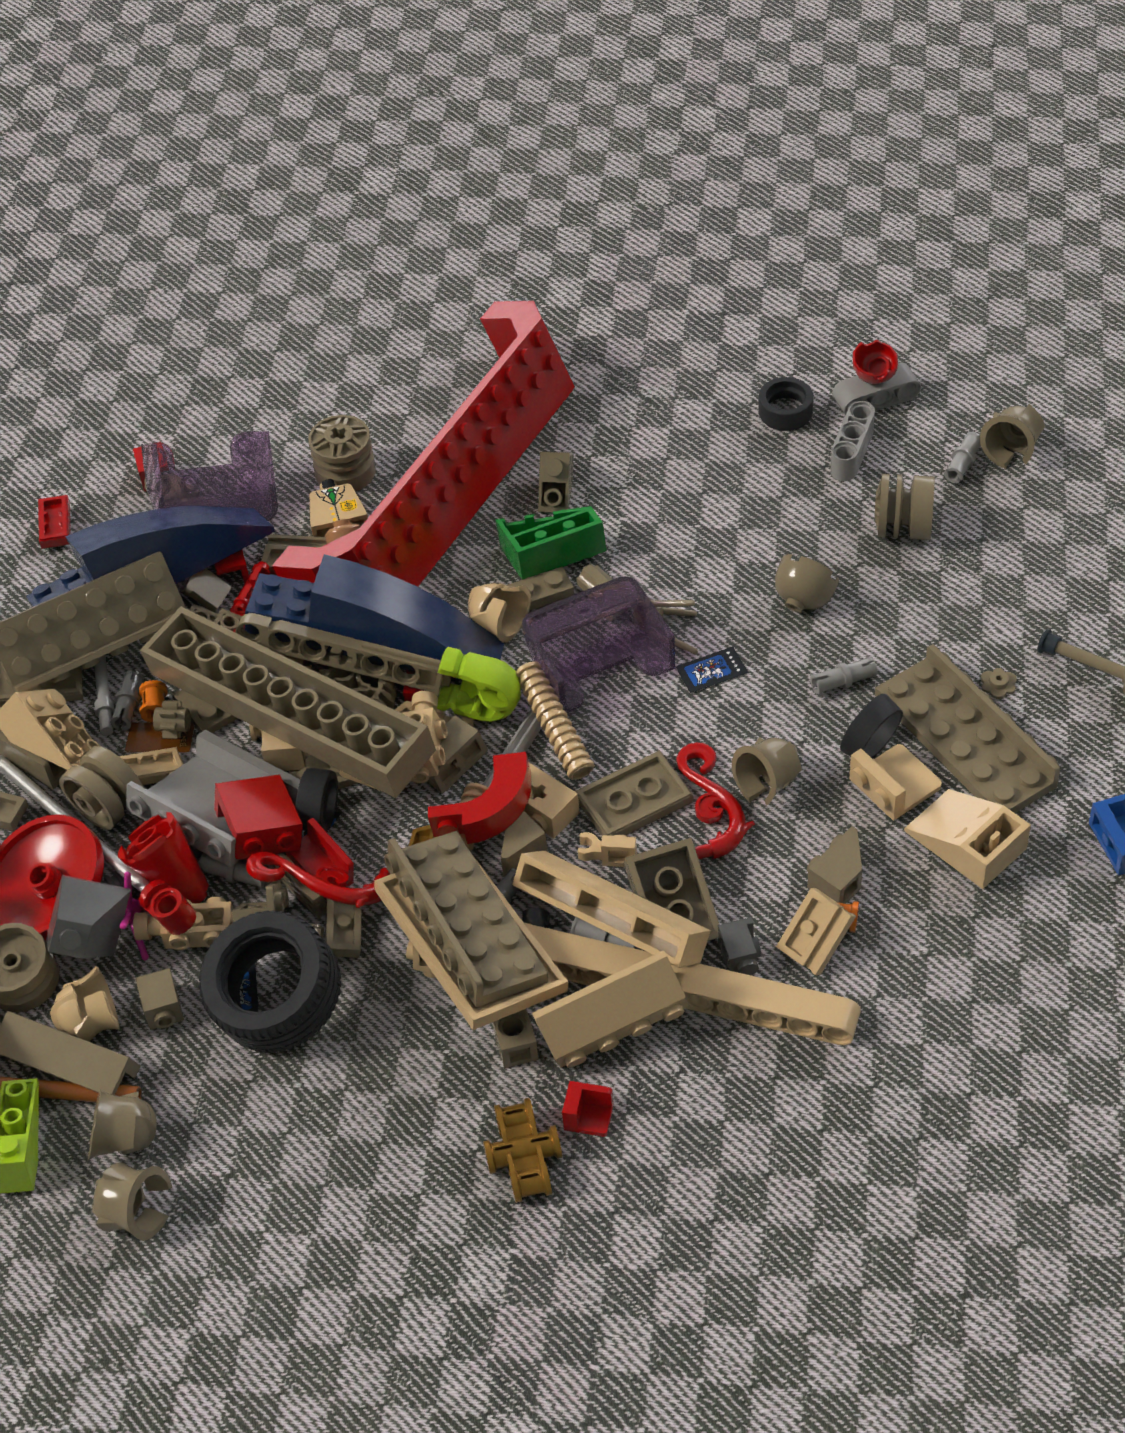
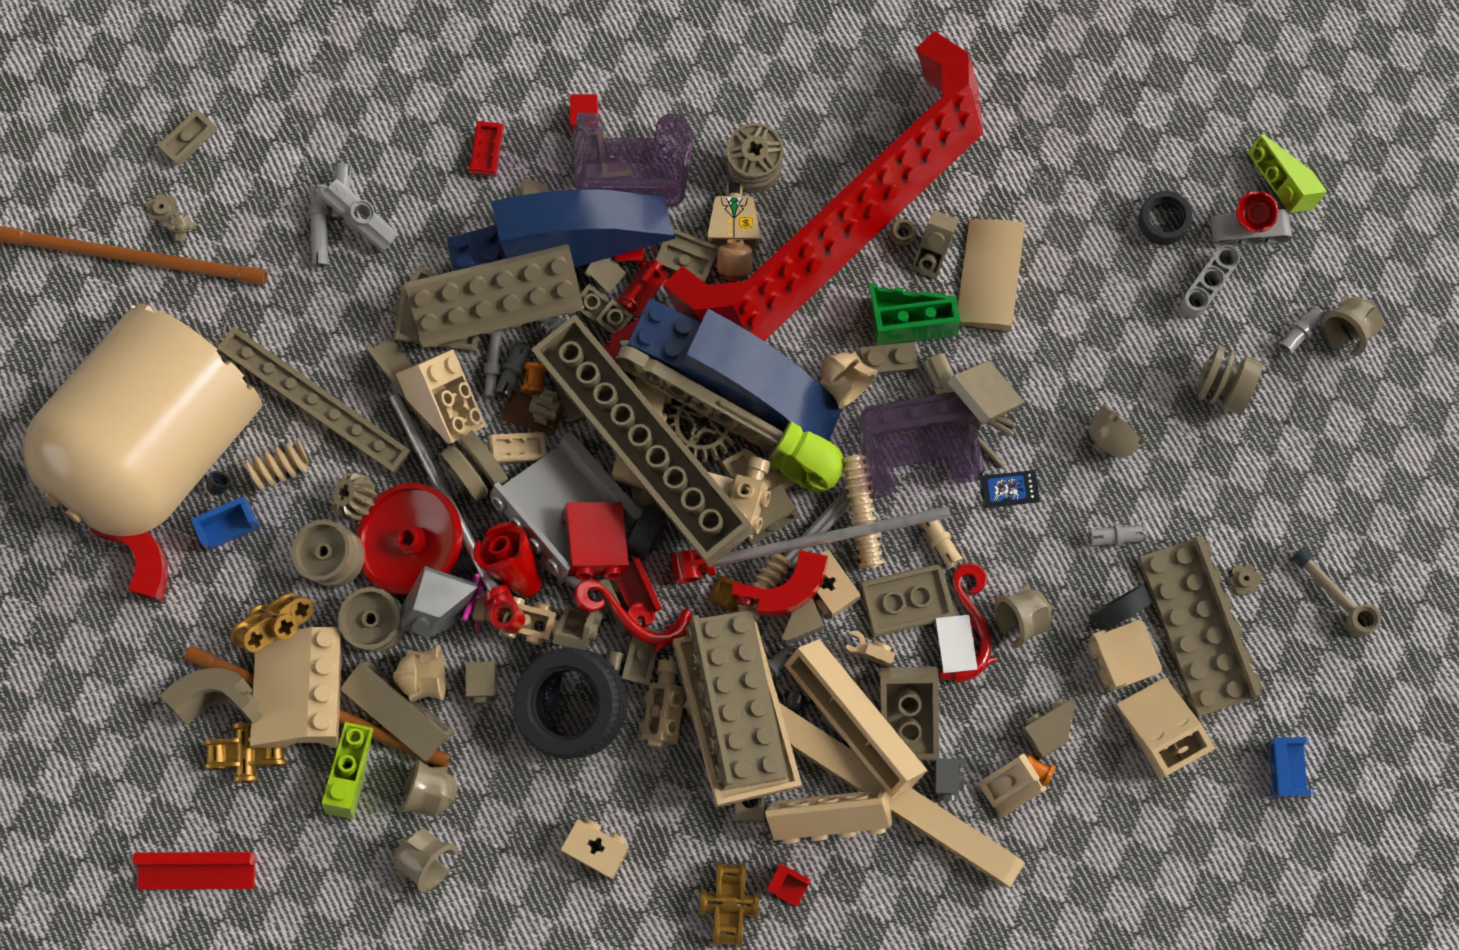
camera: 10 degrees right, 25 degrees up
(341, 1135) = (604, 862): none -> tan brick
(376, 824) = (688, 565): none -> flat silver piece
(383, 965) = (663, 707): none -> tan brick
(519, 481) = (906, 225): none -> dark tan plate
(624, 492) = (990, 274): none -> tan slope
(651, 577) = (985, 392): none -> dark tan tile
(651, 729) = (942, 542): none -> tan pin
(702, 817) = (956, 643): none -> white sticker
(910, 343) = (1288, 177): none -> lime slope

